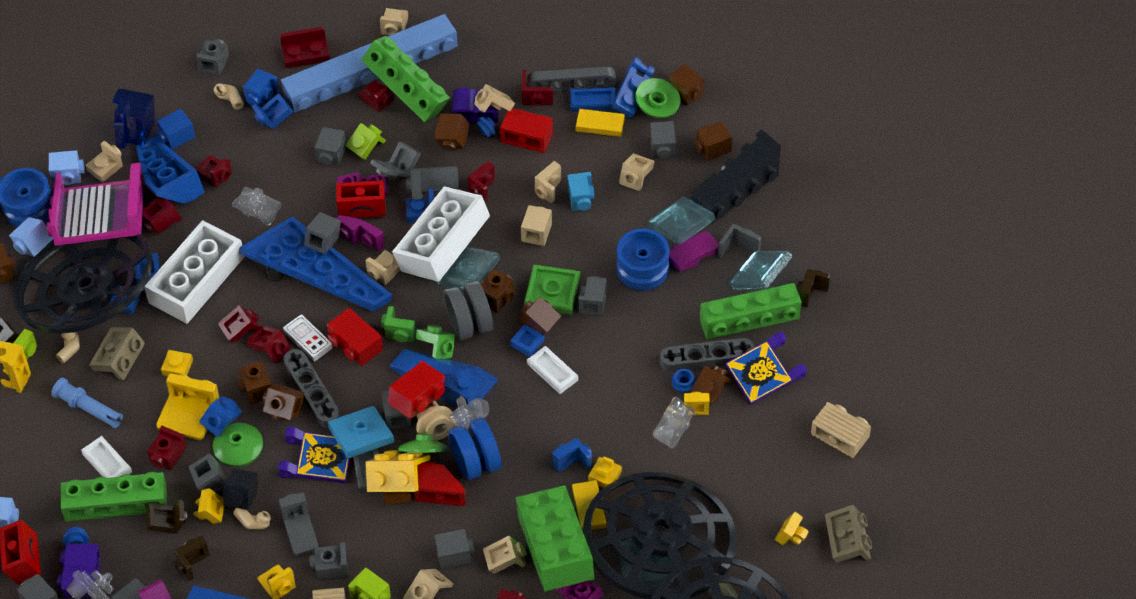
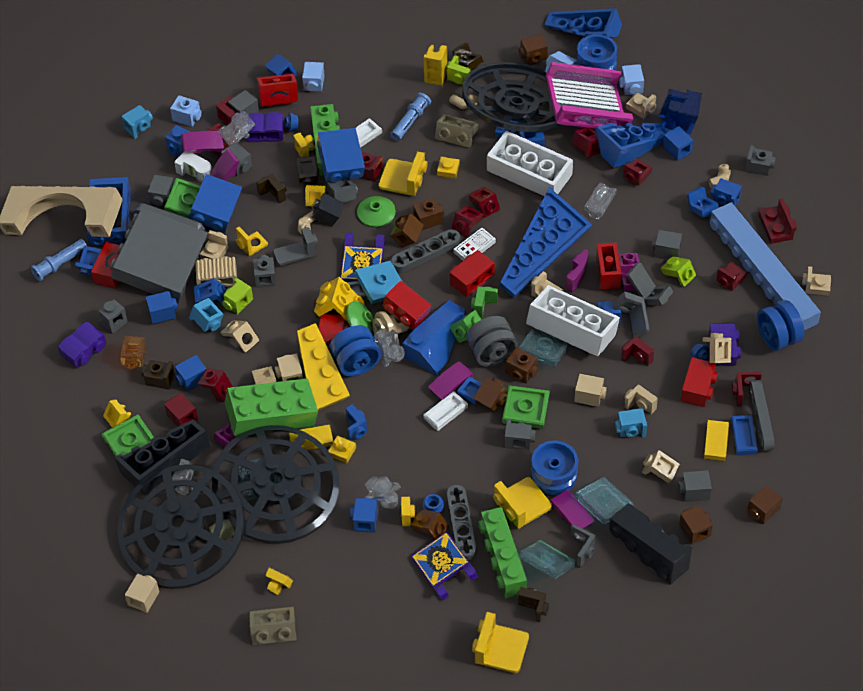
camera: 90 degrees right, 0 degrees up
(121, 523) = (303, 145): none -> yellow tile
(164, 463) = (340, 154): none -> blue brick
(220, 414) = (397, 194): blue bracket -> none
(322, 233) = (569, 240): dark grey brick -> none
(405, 78) = (736, 283): bright green brick -> none
(451, 131) = (688, 325): reddish brown brick -> none
(453, 549) = (270, 345): dark grey brick -> none
(462, 48) = (780, 325): none -> blue wheel
(490, 489) = (320, 368): none -> yellow wing
(490, 526) = (288, 368): none -> tan brick
(513, 361) = (450, 380): none -> magenta slope
(625, 98) = (757, 462): blue plate -> none
(661, 92) = (743, 471): bright green dish -> none
(681, 295) = (521, 501): none -> yellow bracket
(700, 444) = (364, 514): none -> blue brick
(841, 429) = (379, 621): tan brick -> none
(865, 318) = (499, 645): none -> yellow bracket

